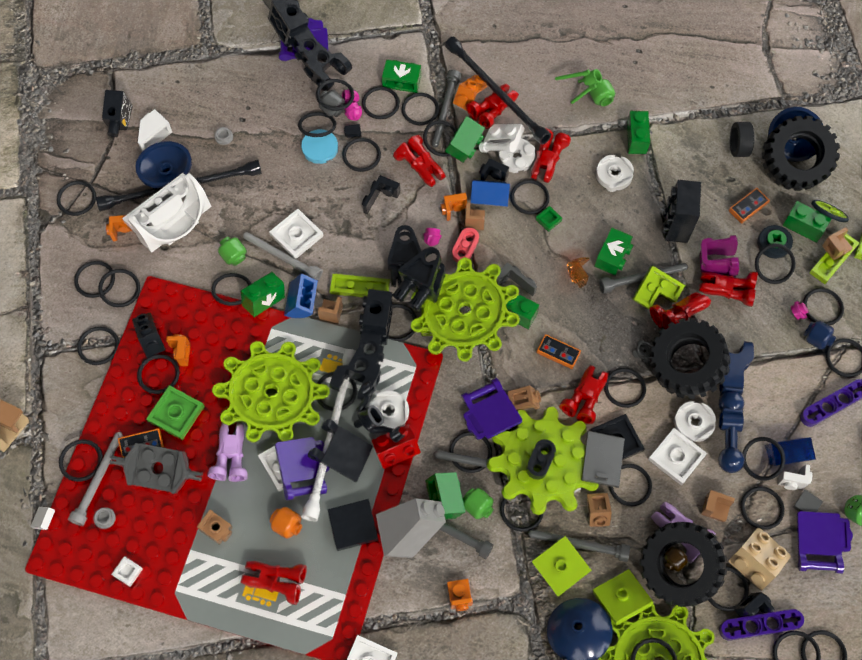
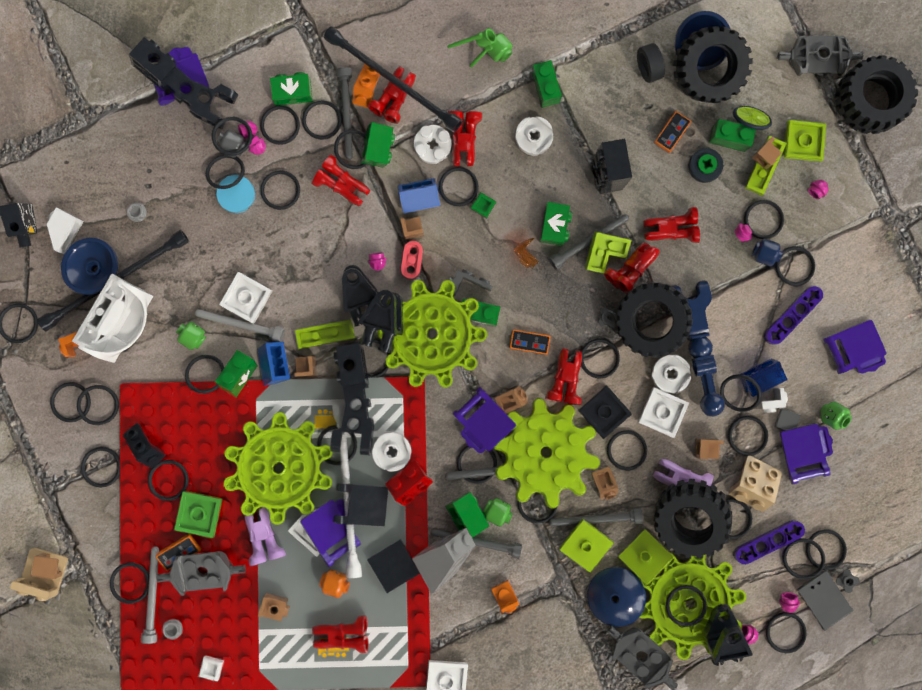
camera: 15 degrees left, 20 degrees up
(42, 518) = (118, 644): white tile -> none
(181, 348) = (181, 454): orange bracket -> none
(352, 131) = (262, 166): black piece -> none
(372, 418) = (381, 470): black piece -> none
(386, 186) = (318, 221): black bracket -> none
(453, 202) = (389, 217): orange bracket -> none
(495, 169) = (418, 169): black bracket -> none
(502, 138) = (414, 127): white plate -> none
(541, 460) = (545, 461): black plate -> none
(603, 459) = (598, 437): dark grey container -> none
(675, 559) = (686, 522): dark brown piece -> none
(726, 247) = (665, 186): magenta piece -> none
(754, 603) = (758, 529): black bracket -> none
(793, 263) = (699, 178): black tyre -> none

